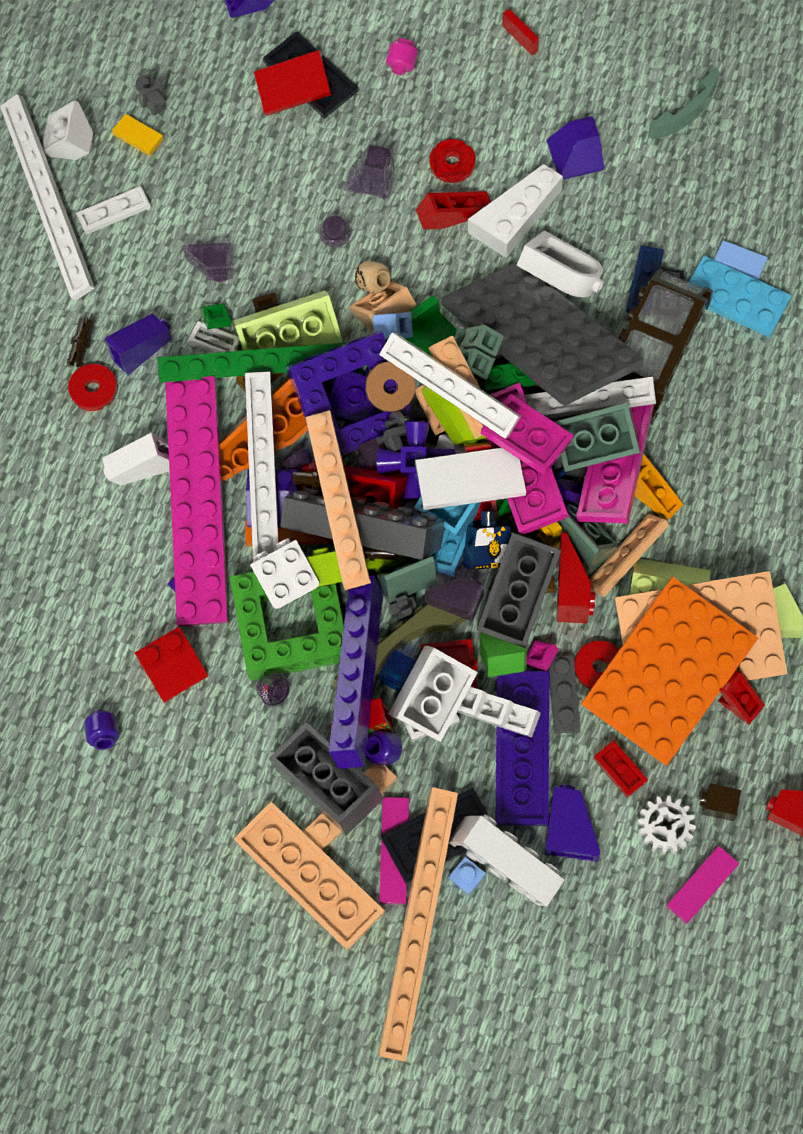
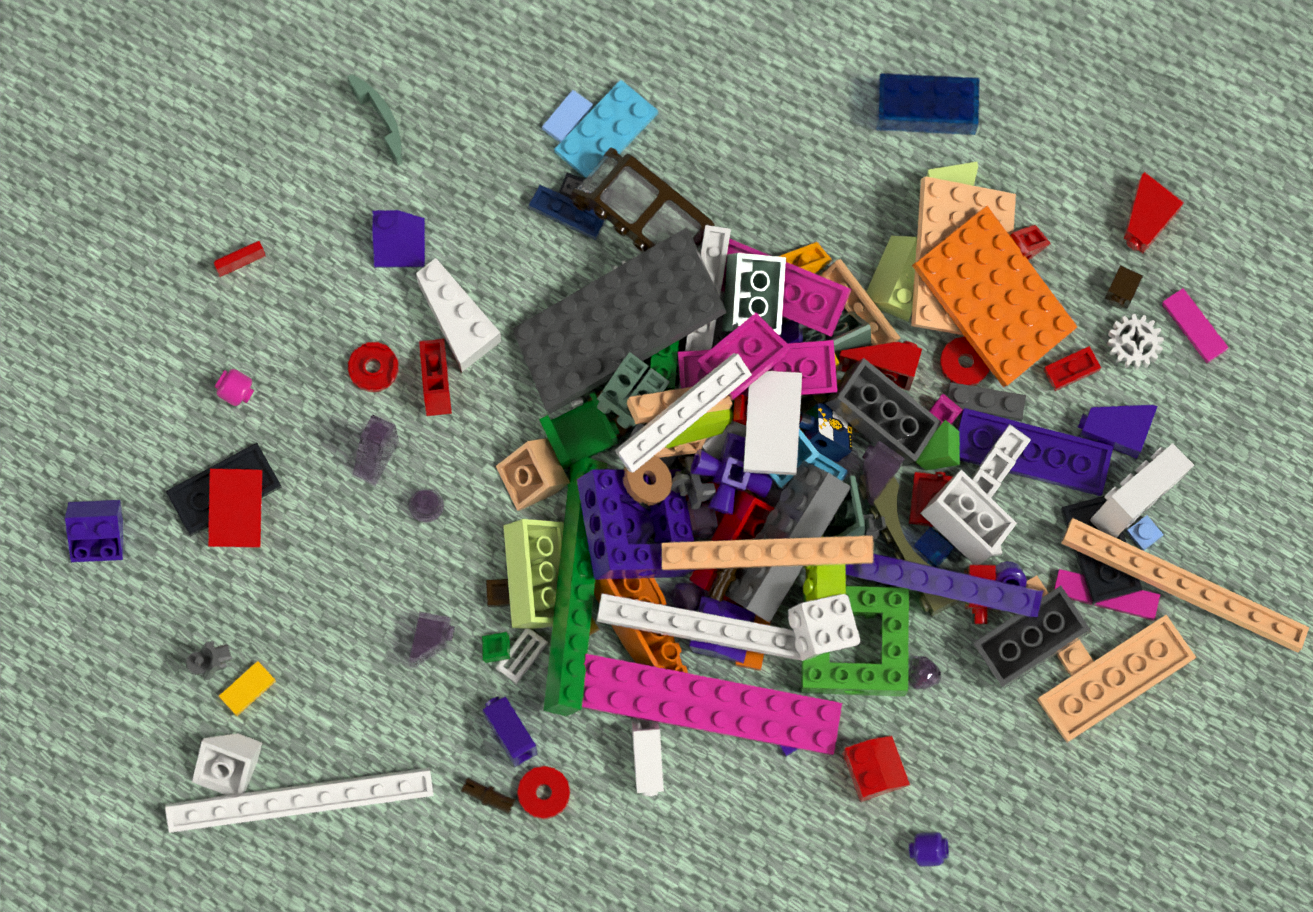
camera: 85 degrees left, 5 degrees up
(113, 210) = (334, 732): white tile -> none
(372, 277) = (496, 476): tan head -> none
(393, 323) = (570, 464): light blue brick -> none
(562, 265) = (526, 275): white window -> none

